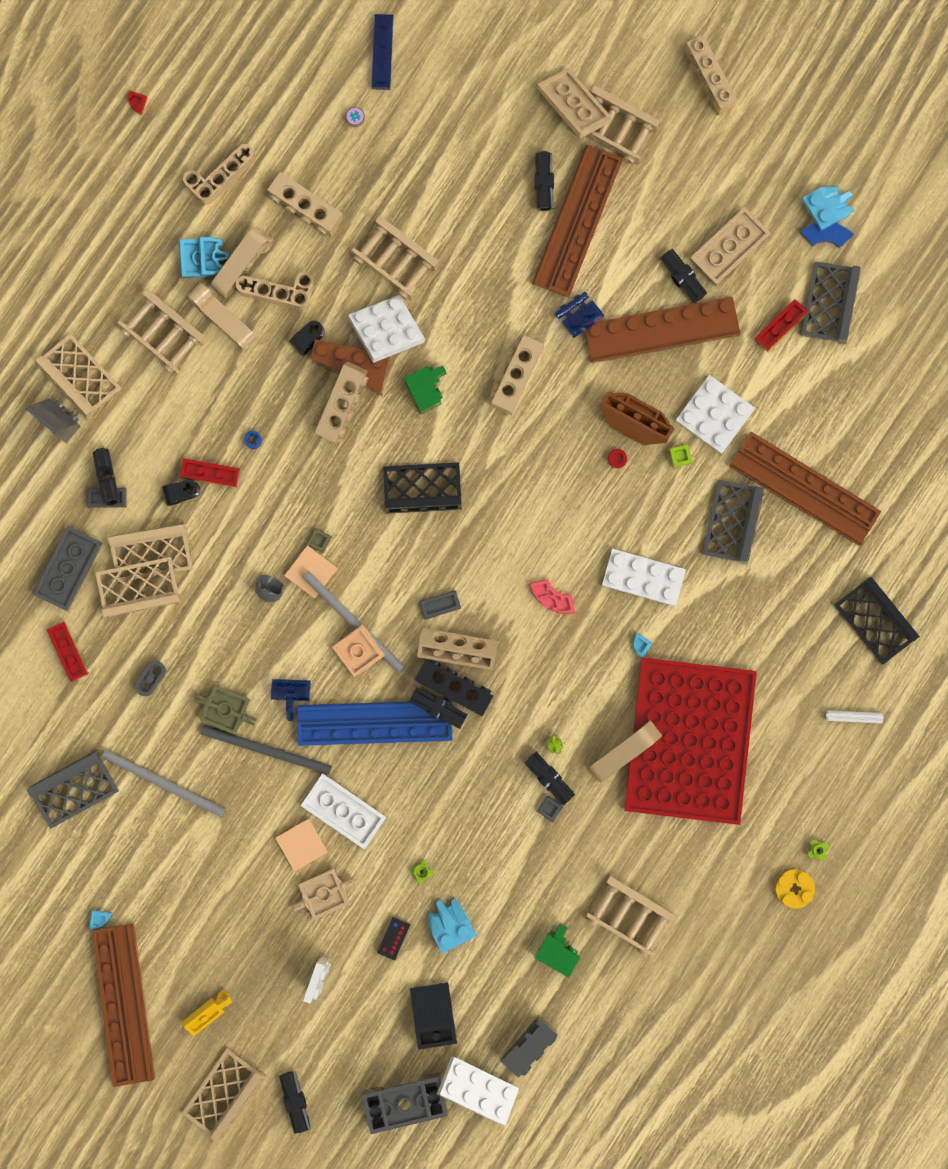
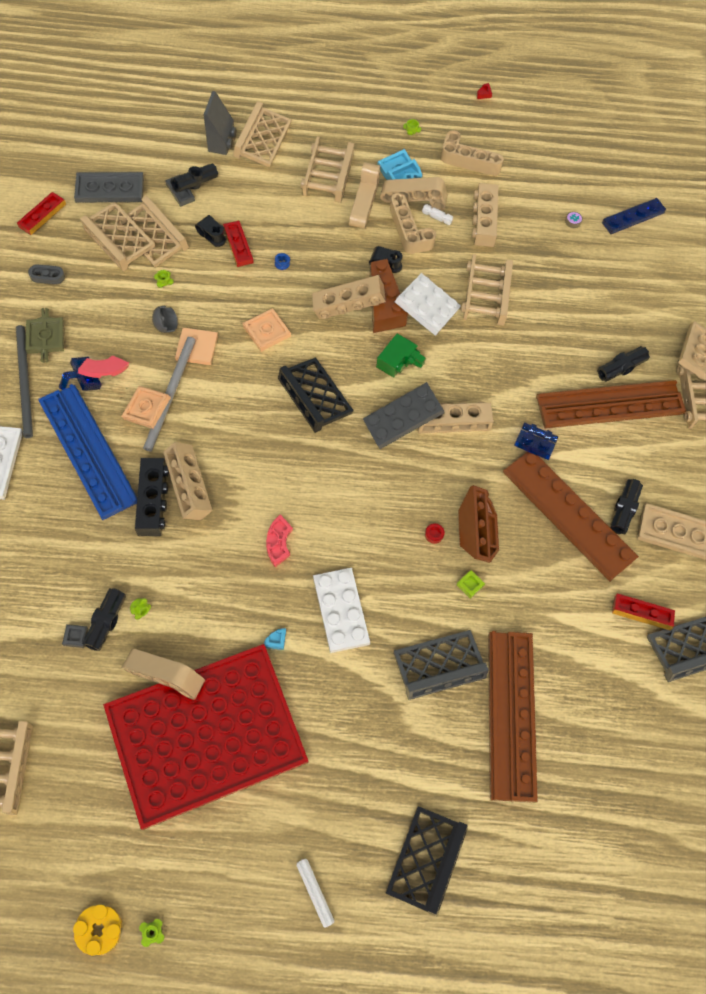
camera: 55 degrees right, 20 degrees down
(144, 206) = (412, 127): none -> lime plate
(209, 566) = (163, 274): none -> lime plate
(277, 252) = (437, 214): none -> white axle
(295, 670) = (98, 368): none -> coral tile
(319, 540) = (226, 341): olive tile -> none
(326, 496) = (266, 329): none -> light nougat tile
(438, 708) = (123, 488): black piece -> none
(440, 605) = (221, 453): dark grey tile -> none
(494, 422) = (403, 415): none -> dark grey plate
(715, 414) = (526, 596): white plate -> none

